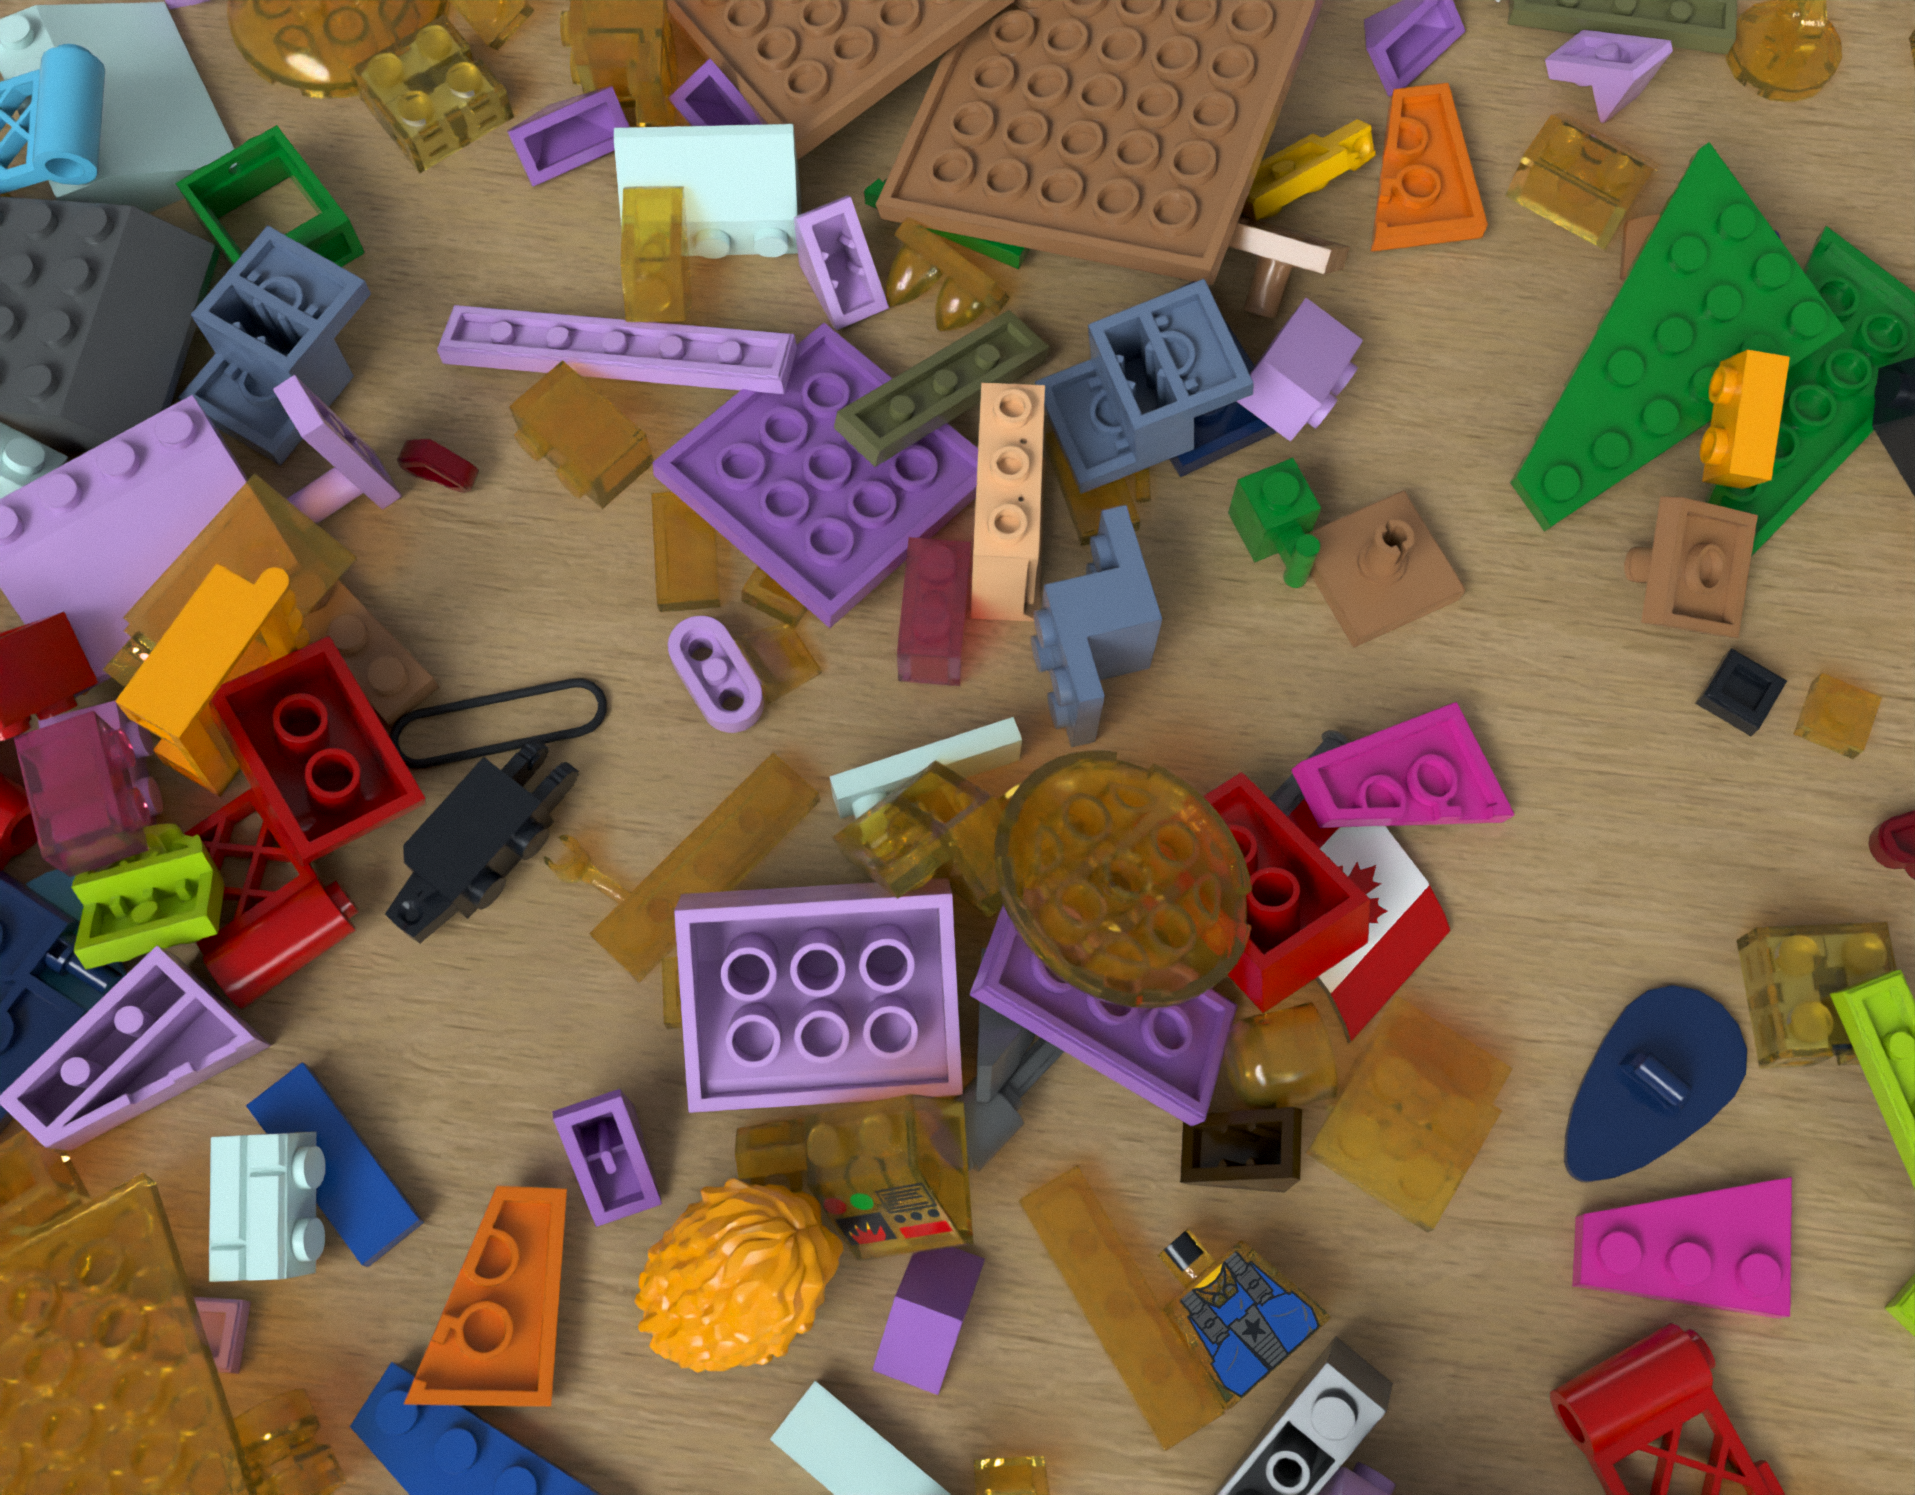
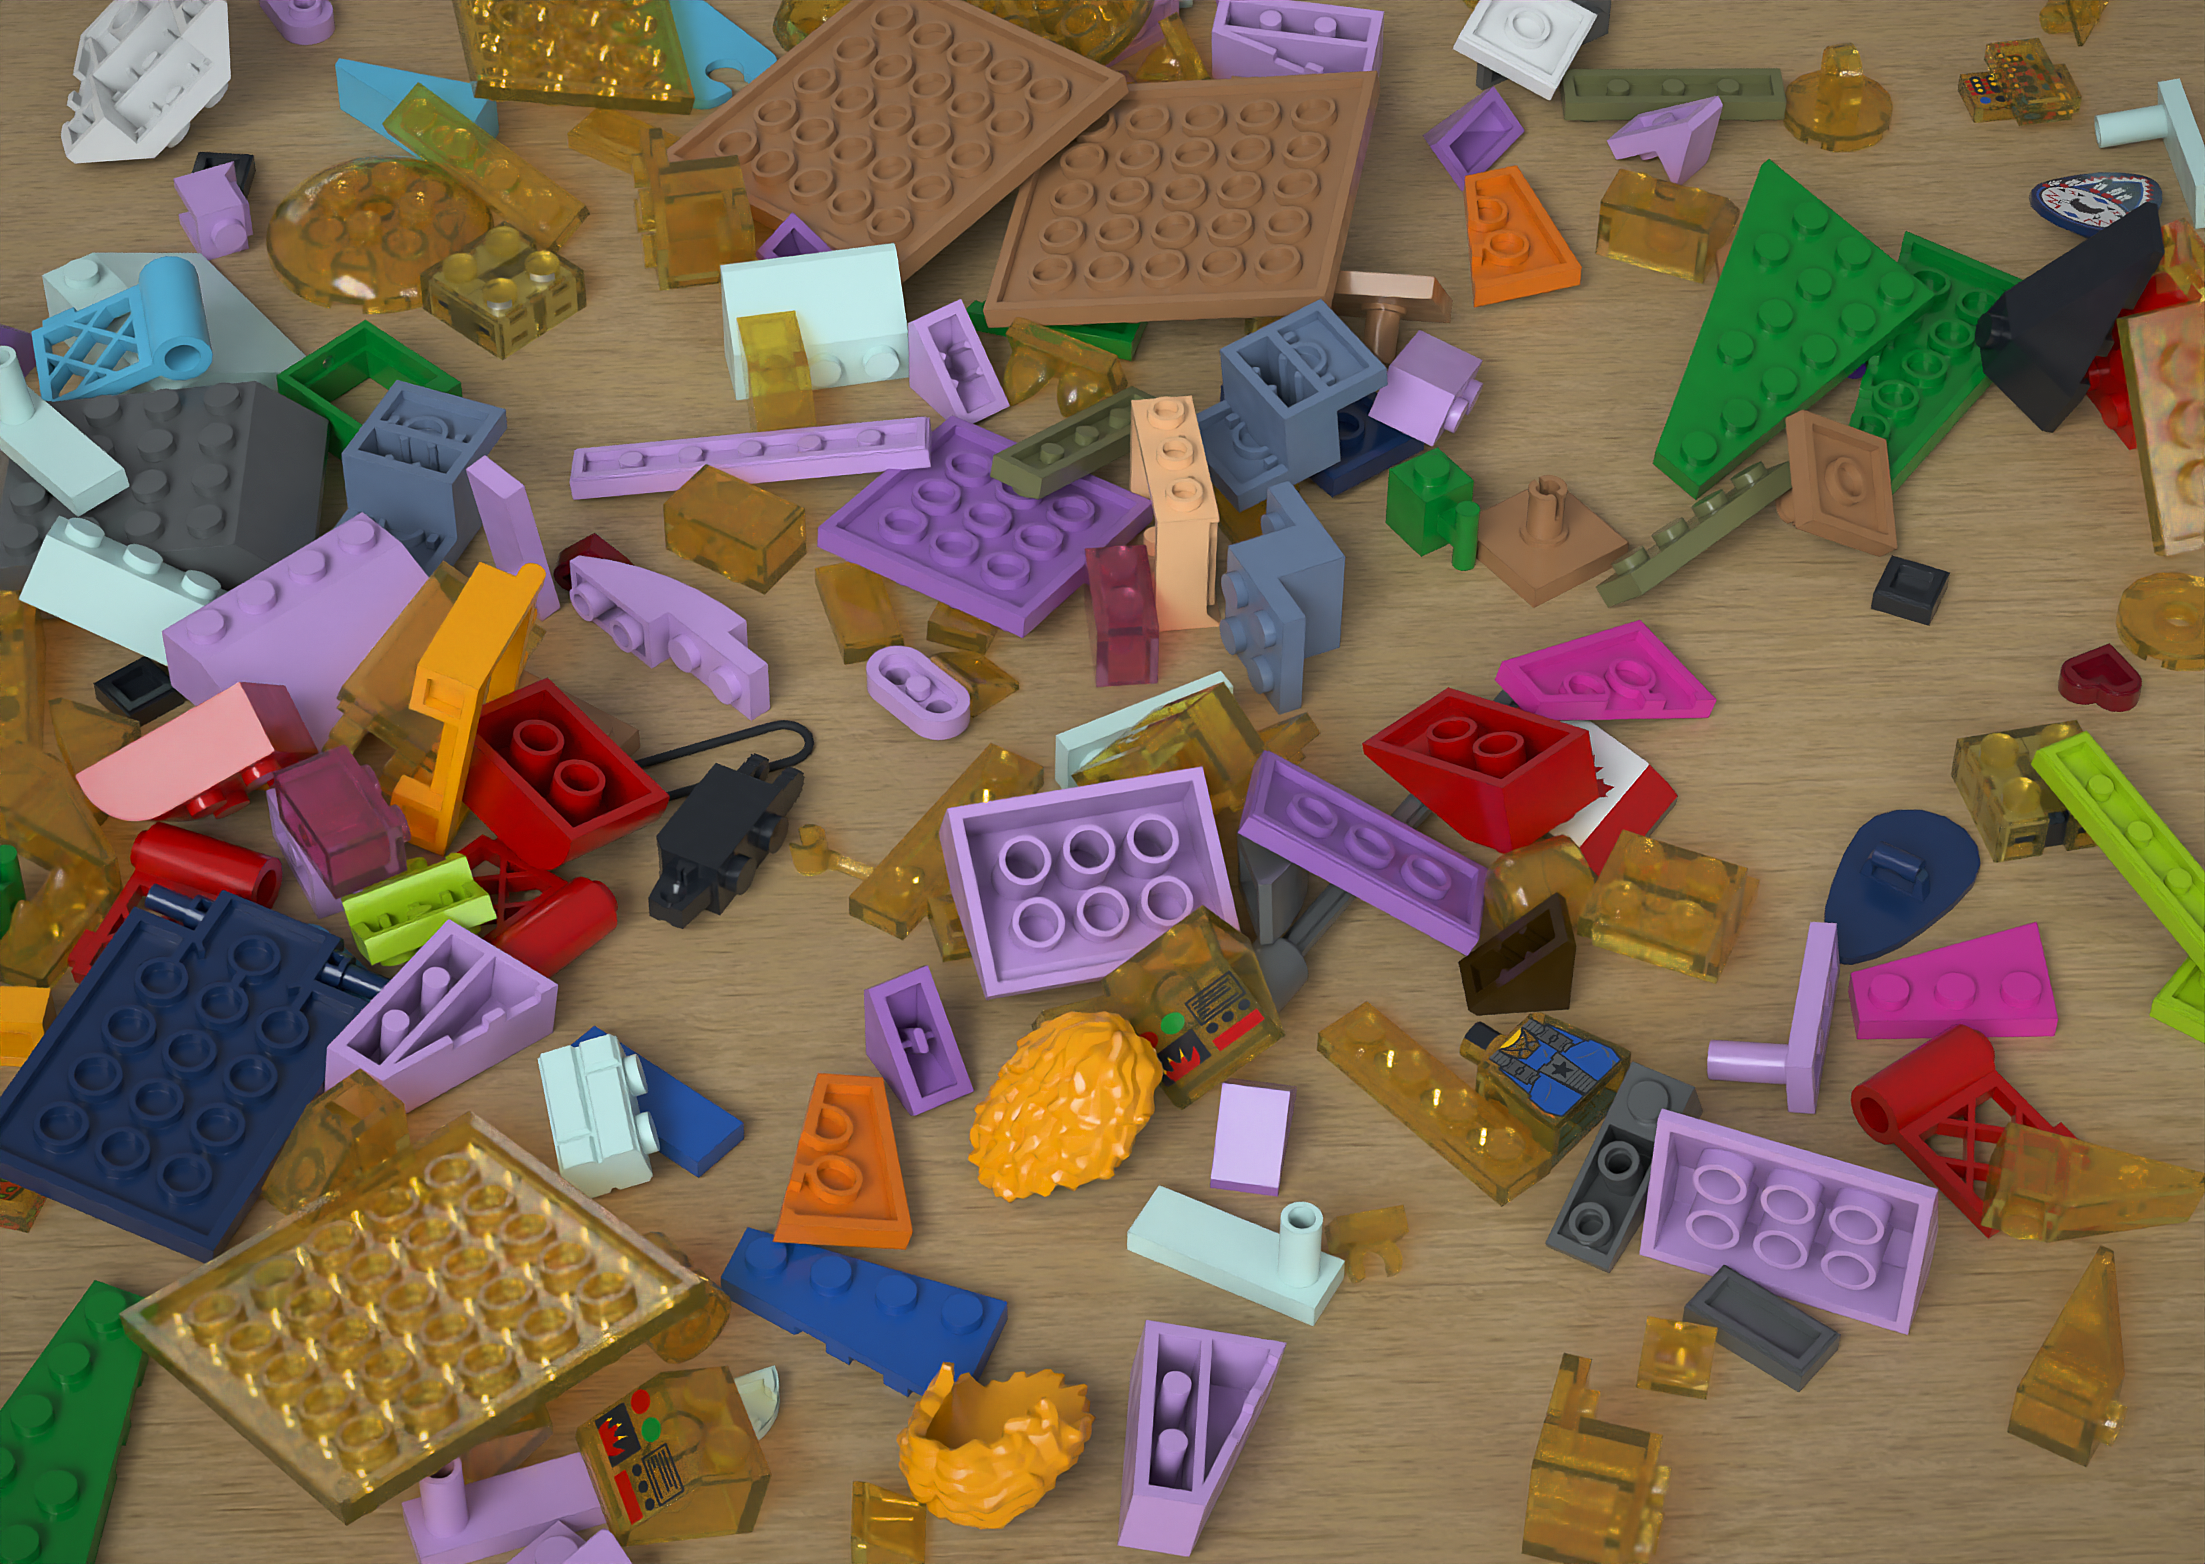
camera: 10 degrees left, 25 degrees down
(494, 551) = (669, 619): none -> lavender slope
(567, 134) = (655, 306): medium lavender slope -> none
(1176, 868) = (1357, 732): clear yellow brick -> none
(1307, 167) = (1401, 241): yellow hinge -> none
(1507, 1335) = (1802, 1059): none -> lavender piece
(1538, 592) = (1682, 540): none -> olive plate
(1744, 419) = (1854, 363): light orange piece -> none
(1837, 716) = (2004, 595): clear yellow plate -> none

